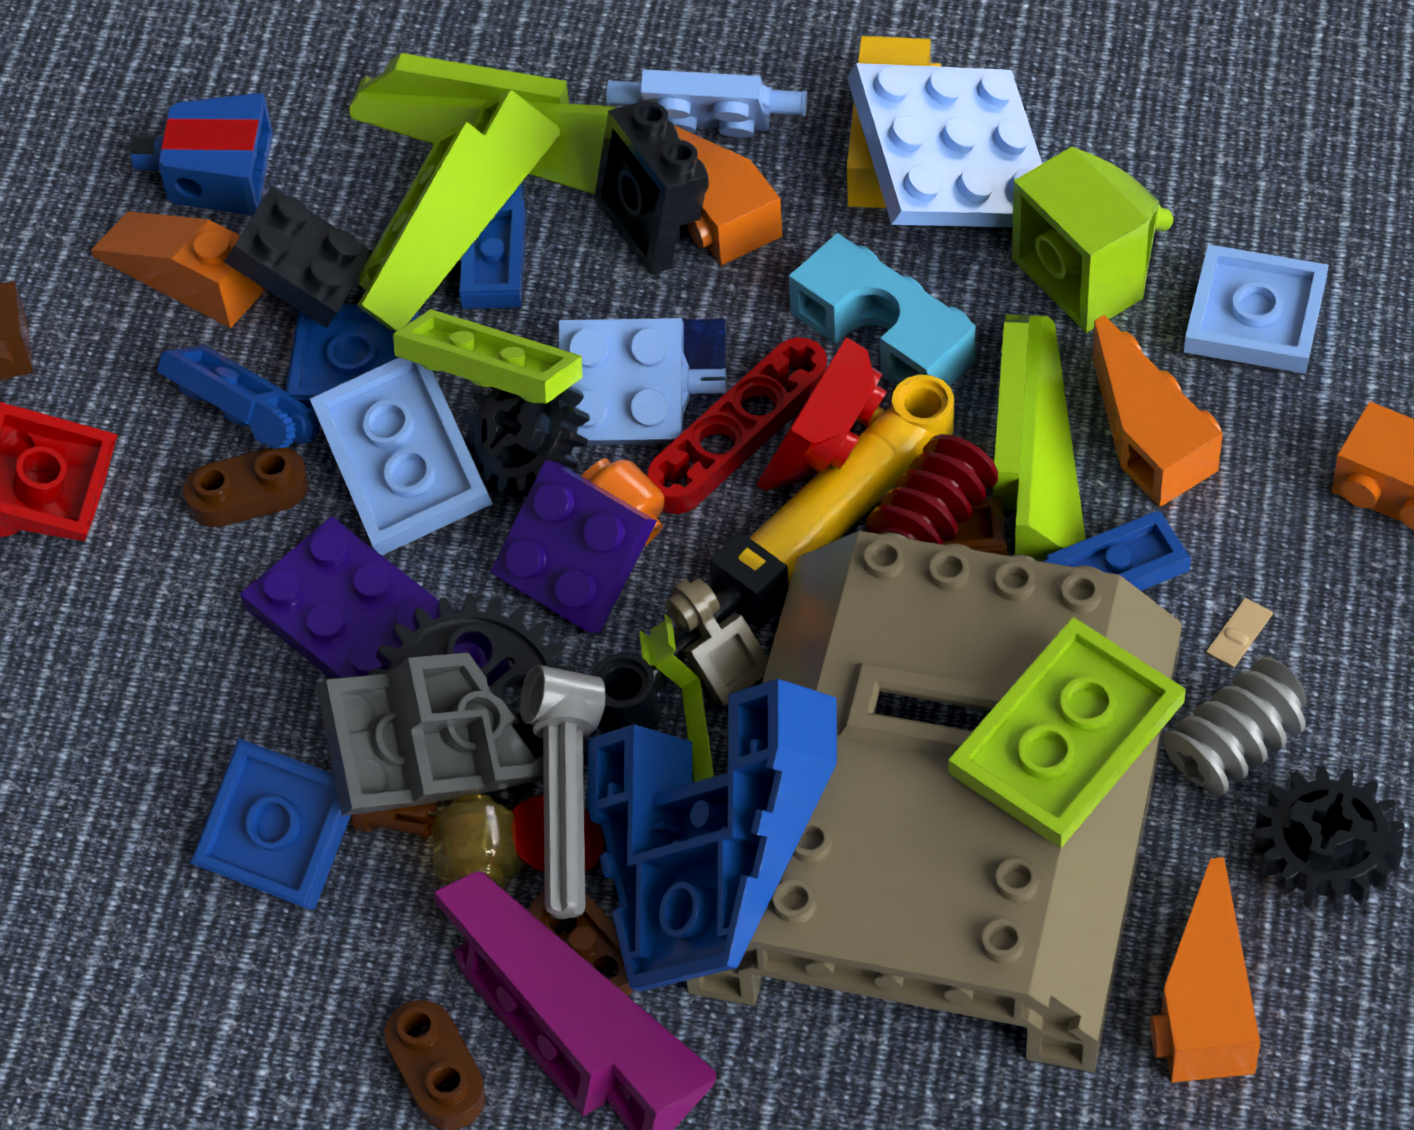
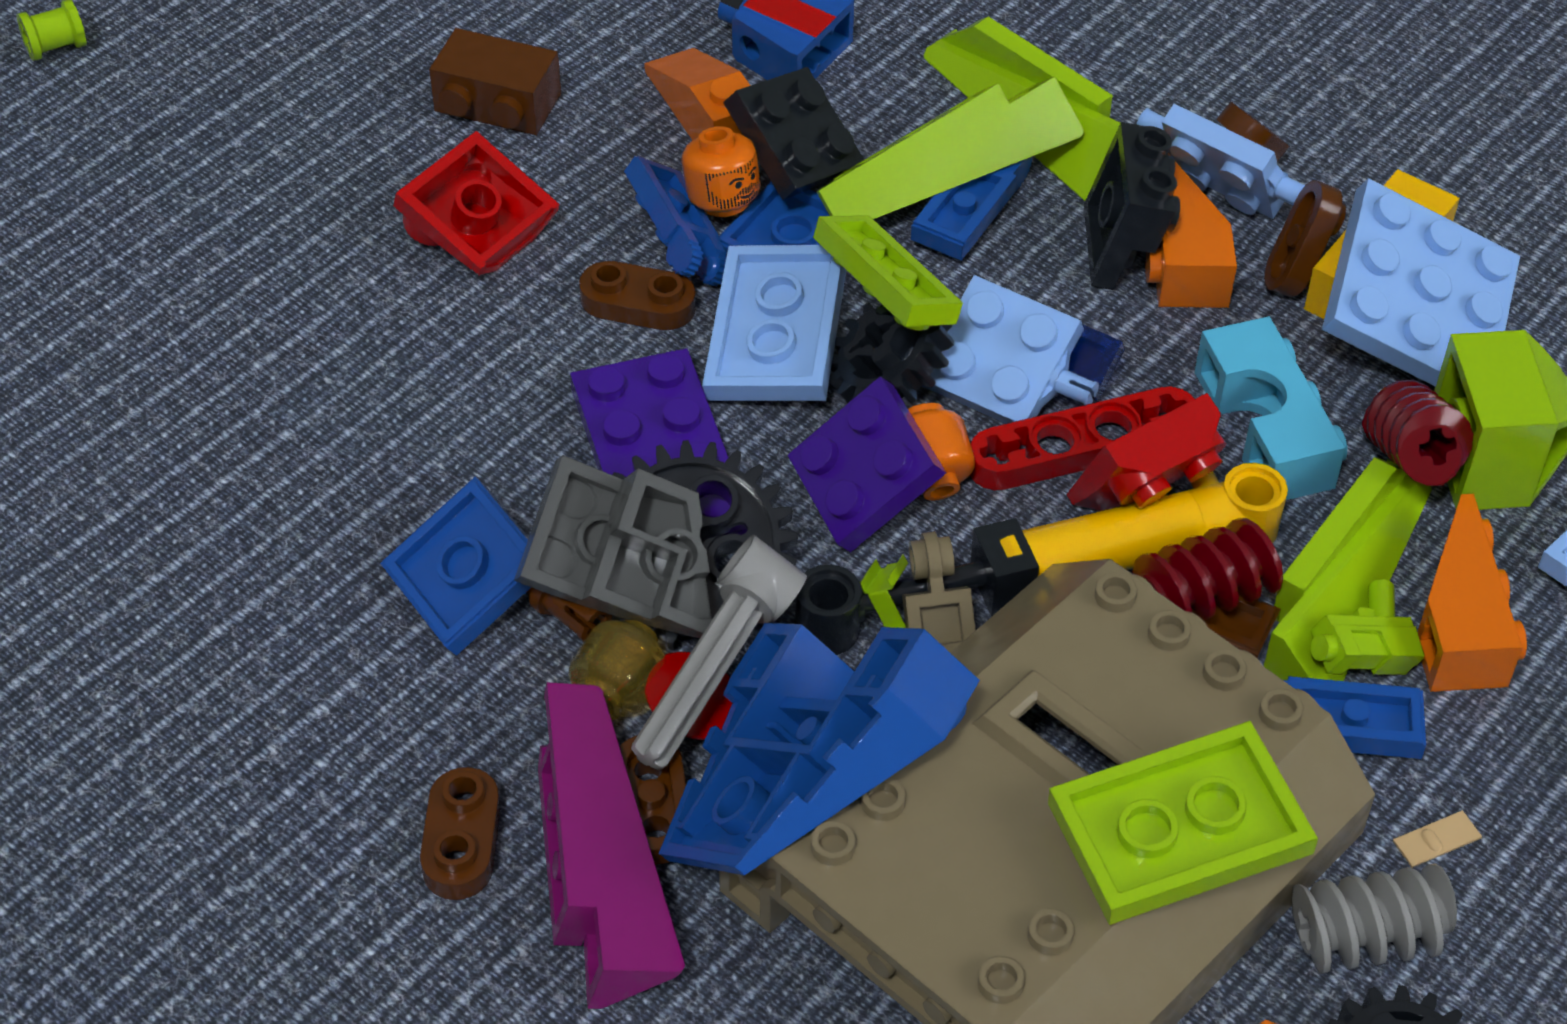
camera: 25 degrees right, 5 degrees down
(255, 329) = (721, 171): none -> orange head
(711, 58) = (1244, 124): none -> reddish brown plate
(820, 142) = (1311, 222): none -> reddish brown plate
(1027, 280) = (1419, 431): none -> dark red piece
(1091, 487) = (1368, 637): none -> lime piece

